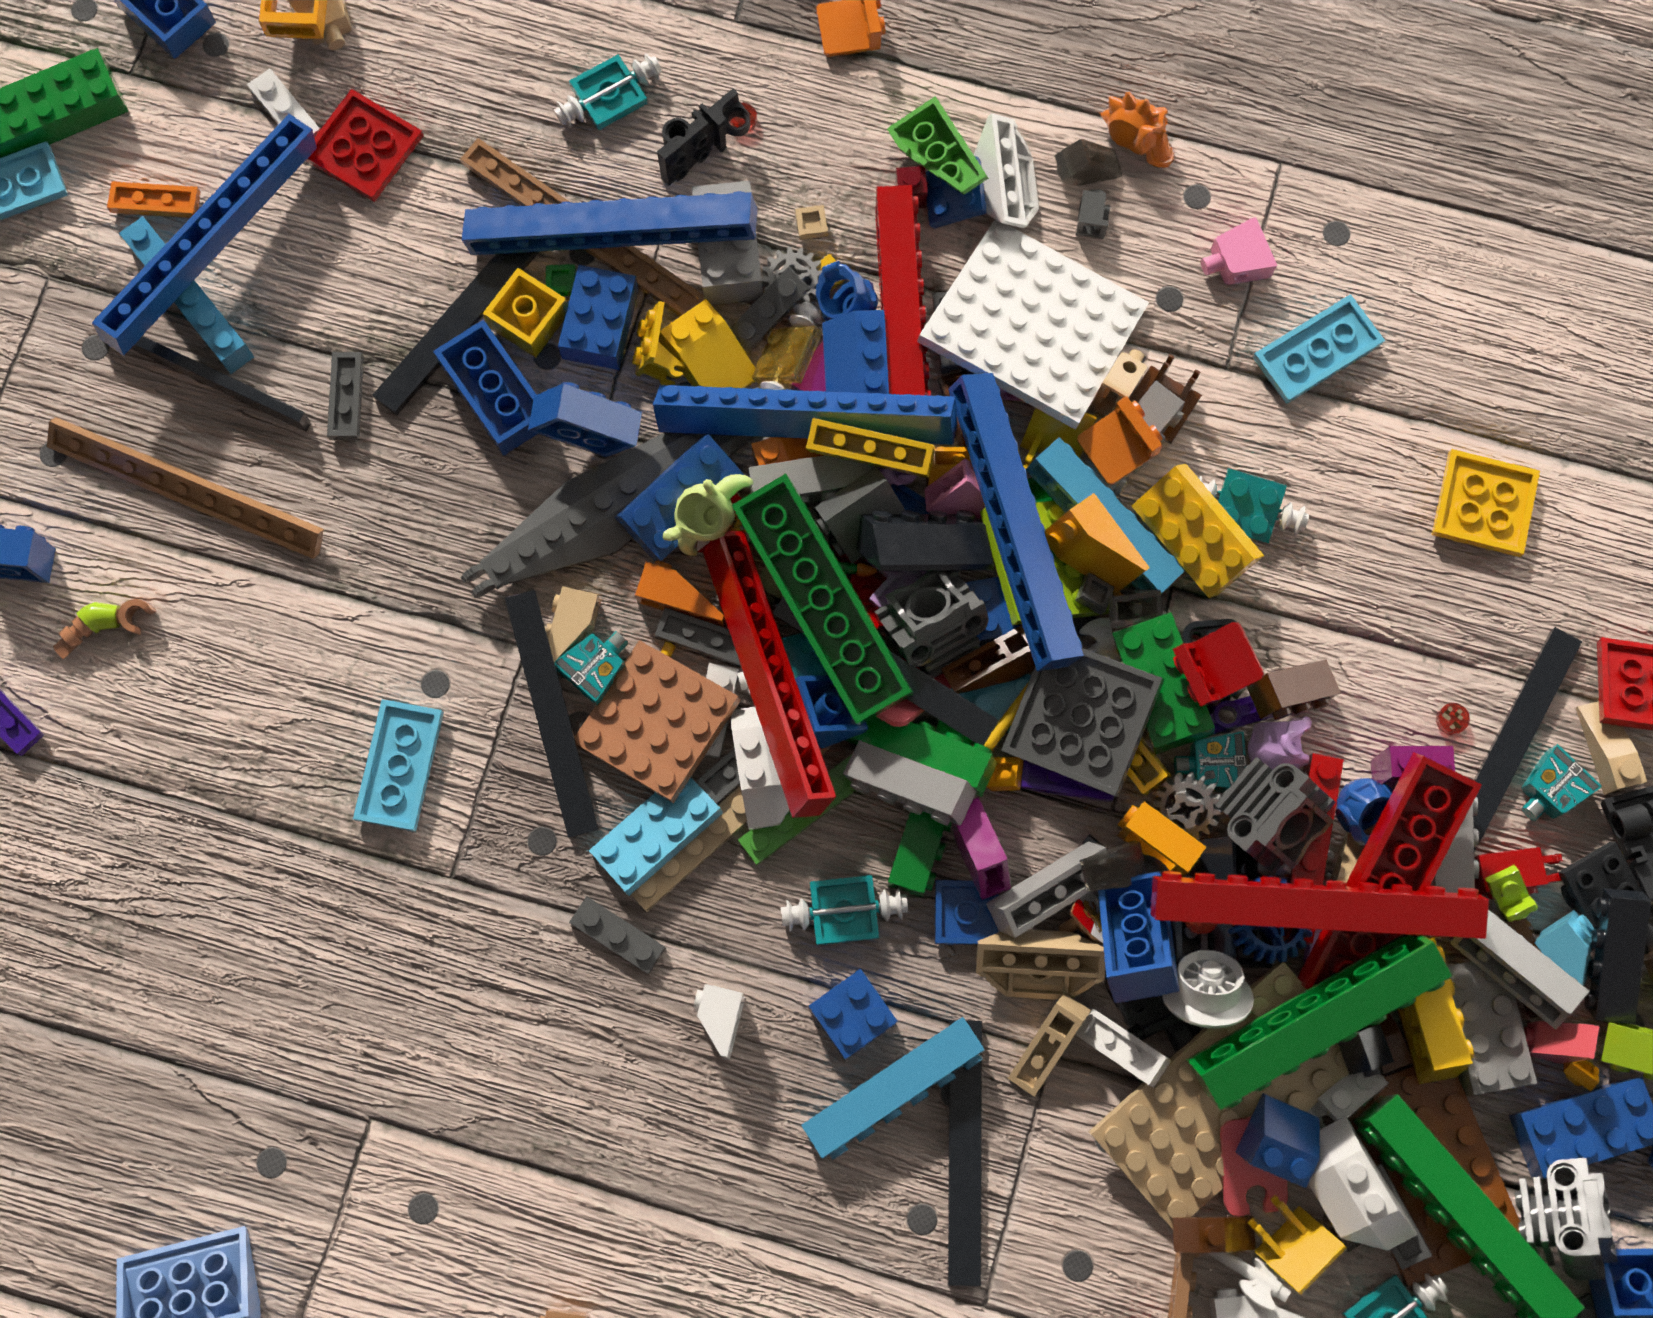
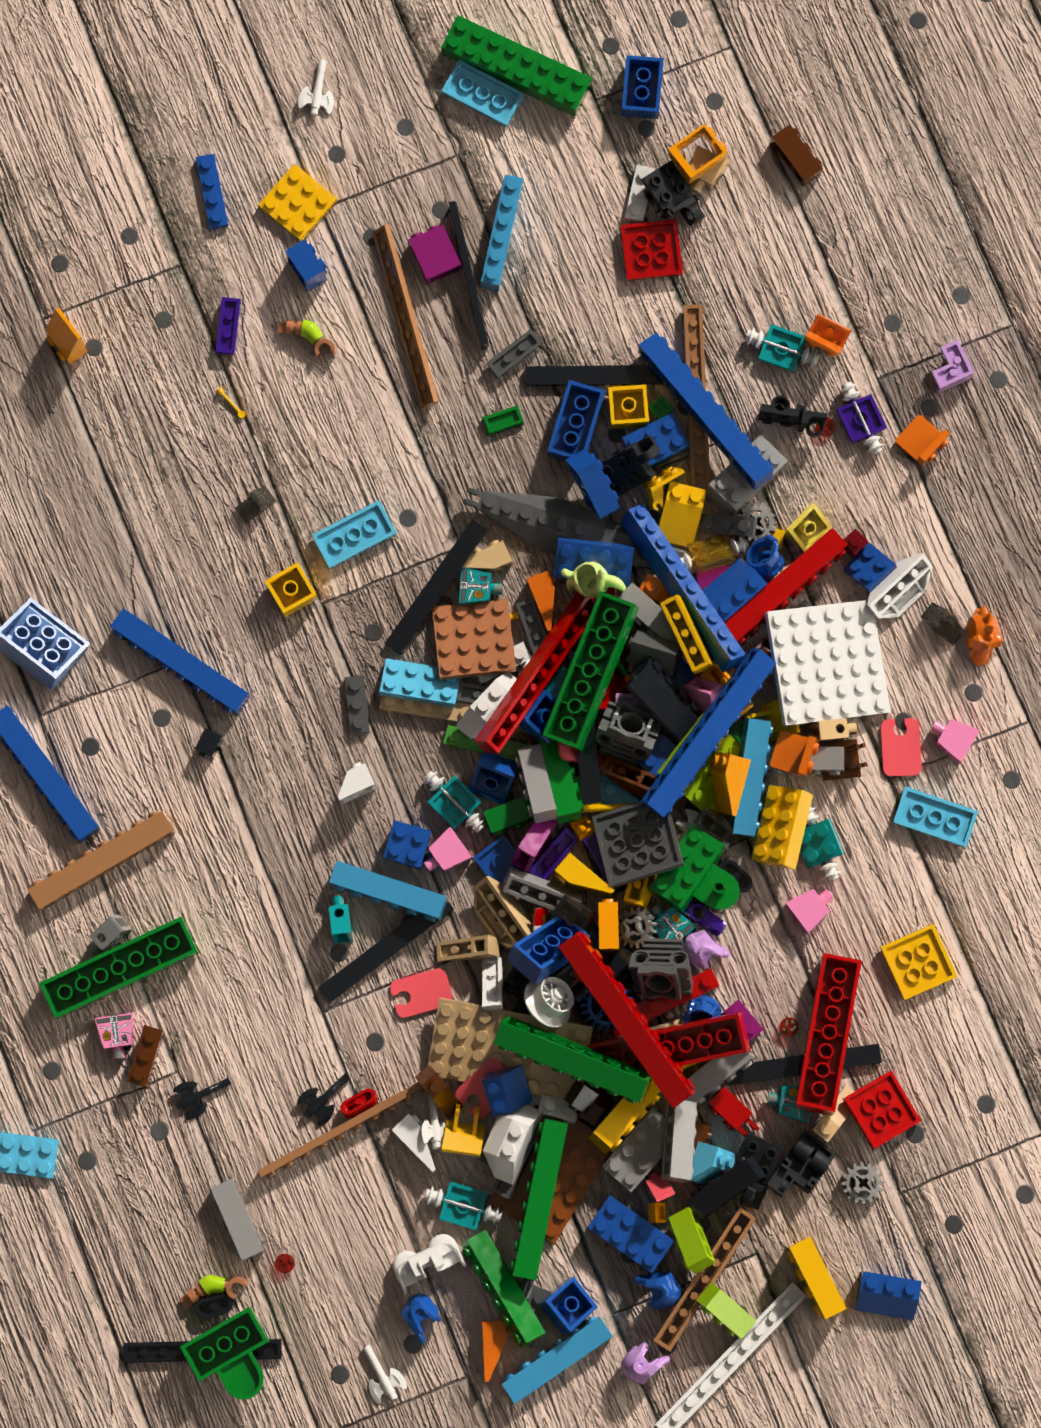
camera: 50 degrees right, 5 degrees up
(124, 786) = (241, 414): none -> yellow hinge
(140, 392) = (434, 253): none -> magenta brick
(153, 199) = (538, 172): orange plate -> none
(205, 235) = (537, 220): blue brick -> none
(253, 860) = (255, 504): none -> clear smoke slope
(316, 69) = (670, 194): none -> black plate
(367, 1124) = (179, 661): none -> blue brick
(400, 900) = (291, 589): none -> yellow brick
(415, 474) = (503, 420): none -> green tile
(509, 1173) = (208, 744): none -> black brick
(600, 359) = (630, 466): none -> black plate
(636, 27) = (827, 335): none -> orange bracket
(767, 69) = (861, 418): none -> dark purple plate
(811, 222) = (794, 507): tan plate -> none
(848, 226) = (808, 528): none -> light yellow slope
(853, 834) = (493, 777): none -> blue slope
(895, 1188) = (340, 926): none -> teal torso
(902, 970) = (447, 852): none -> bright pink torso
(936, 144) = (885, 540): bright green wedge -> none
(1008, 824) = (553, 853): none -> dark purple plate
(1060, 827) = (578, 876): none -> yellow slope
(1061, 1144) = (424, 991): none -> coral piece
(1093, 214) = (916, 646): dark grey brick -> none
(1094, 593) = (706, 800): dark grey tile -> none
(1206, 329) = (901, 753): none -> coral piece
(1218, 664) = (711, 885): red bracket -> none
(1294, 690) = (735, 935): brick -> none
(1322, 579) = (809, 908): none -> bright pink torso
(1508, 676) = (827, 1034): none -> red brick
(1511, 894) = (715, 1114): lime bracket -> none
(1569, 1218) = (574, 1250): piece -> none

